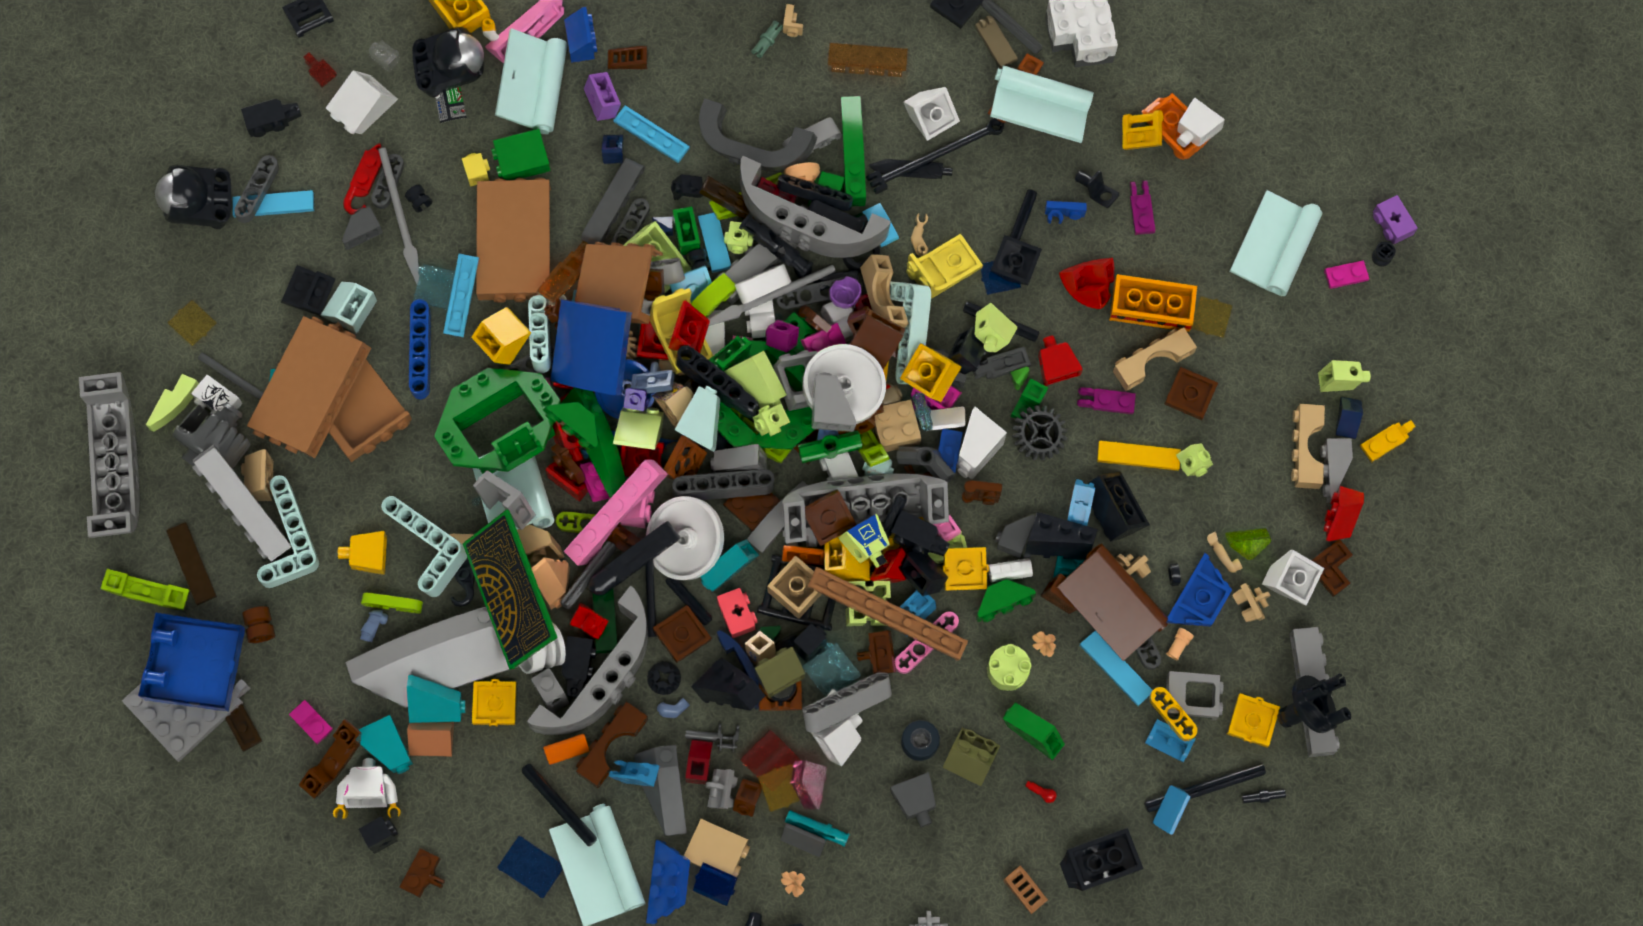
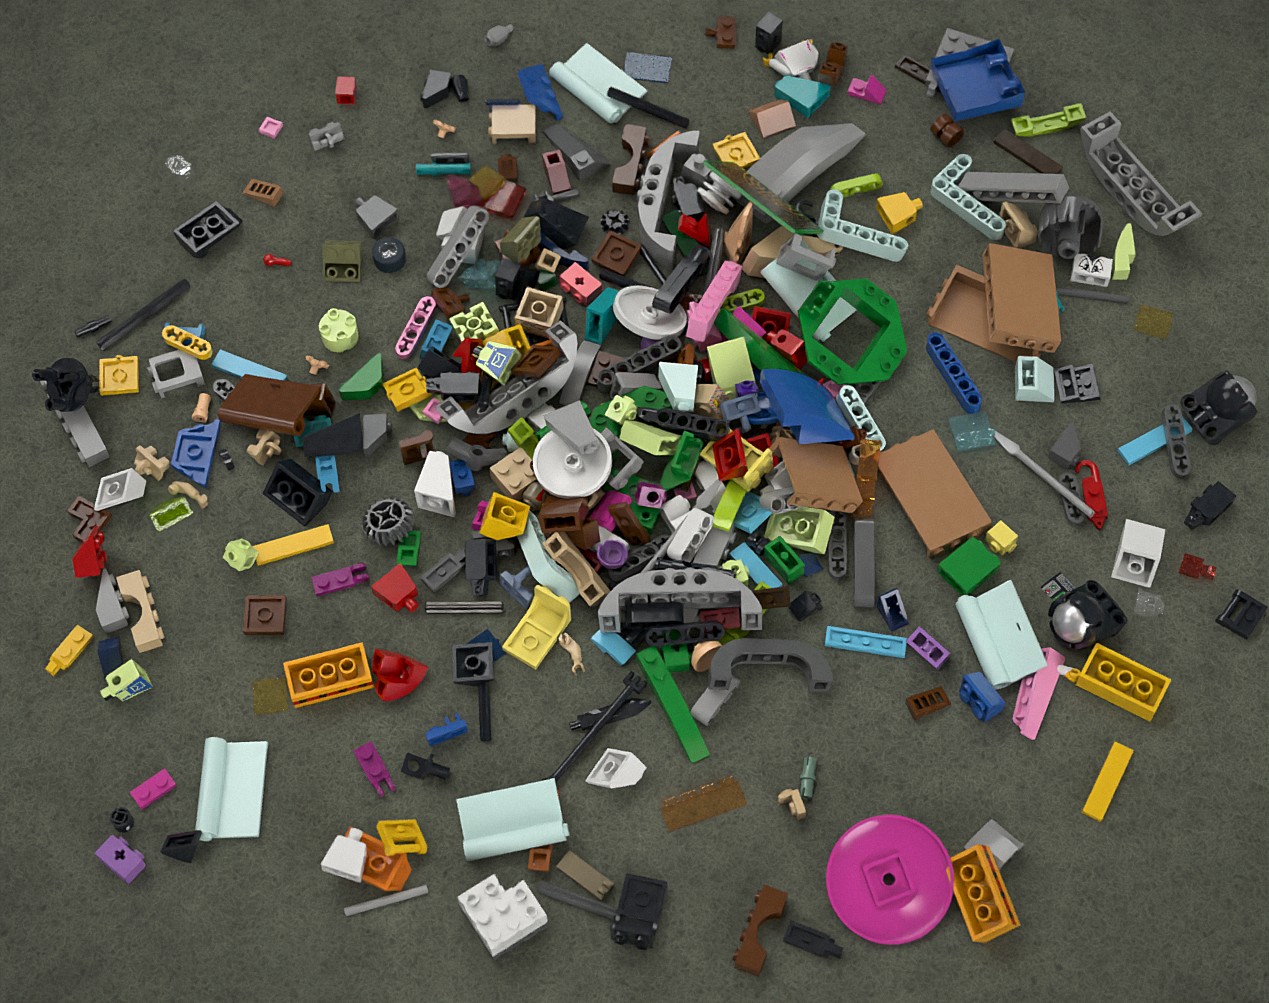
camera: 160 degrees right, 10 degrees down
(370, 627) = (862, 165): sand blue arm -> none
(417, 197) = (1038, 496): black wheel -> none
(433, 702) = (781, 129): teal slope -> none
(461, 295) = (946, 425): medium azure tile -> none
(501, 336) = (890, 401): yellow slope -> none
(563, 458) = (774, 322): reddish brown plate -> none
(575, 421) = (787, 343): green slope -> none
(636, 773) = (601, 142): dark azure hinge -> none
(655, 284) = (781, 481): reddish brown bracket -> none
(672, 711) = (600, 199): sand blue arm -> none
(721, 788) = (529, 159): light grey hips -> none
(887, 613) = (455, 319): medium nougat tile -> none
(922, 411) = (494, 483): clear light blue axle -> none
(941, 306) = (513, 586): none -> sand blue plate
(948, 418) = (474, 493): white slope -> none
(993, 328) = (464, 582): yellowish green torso -> none
(1010, 570) = (369, 404): white axle -> none
(1019, 377) = (426, 562): bright green slope -> none
(1034, 730) = (300, 294): green slope -> none
(1171, 809) = (164, 281): dark azure slope -> none
(1175, 346) = (326, 610): tan arch -> none
(1179, 94) = (386, 900): none -> light grey bar
(1336, 209) = (182, 845): none -> black slope

